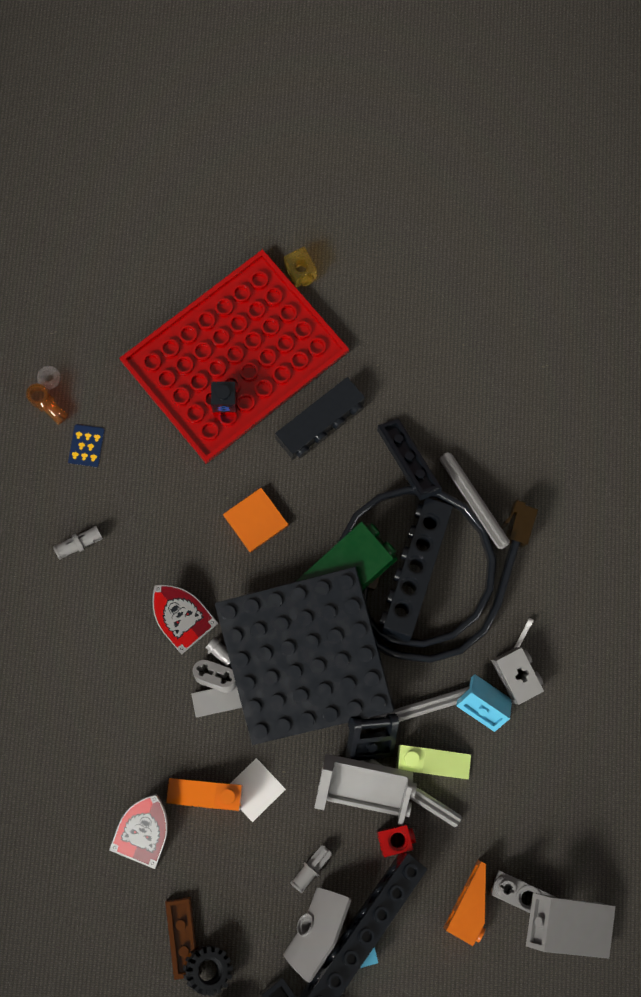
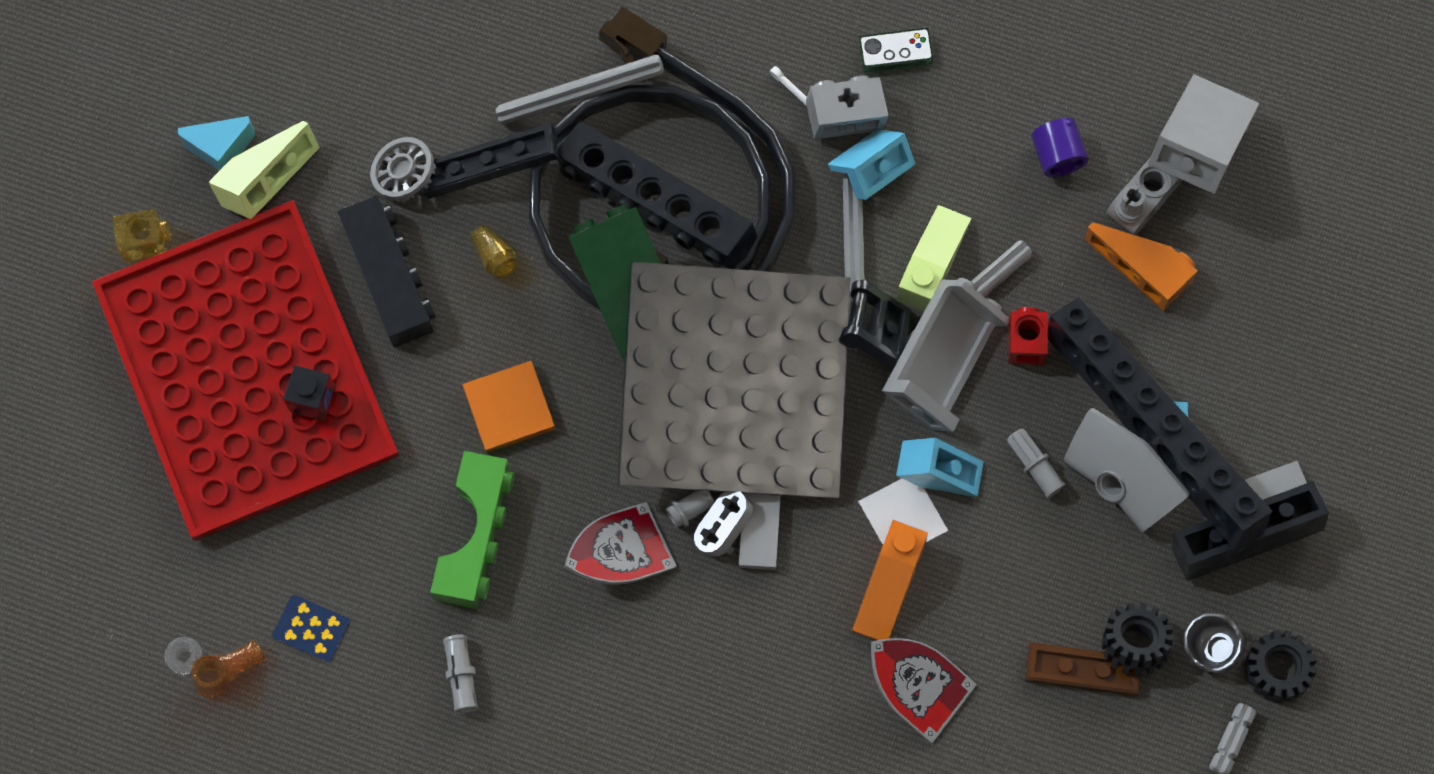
camera: 65 degrees left, 5 degrees down
(198, 520) = (461, 575): none -> bright green arch
(289, 805) = (939, 467): none -> medium azure slope
(352, 480) = (494, 253): none -> clear yellow cone
(363, 325) = (263, 170): none -> yellowish green slope
(374, 294) = (218, 140): none -> medium azure slope
(389, 408) = (402, 169): none -> light grey wheel
(534, 826) = (1059, 147): none -> dark purple piece
(570, 696) = (895, 50): none -> tile

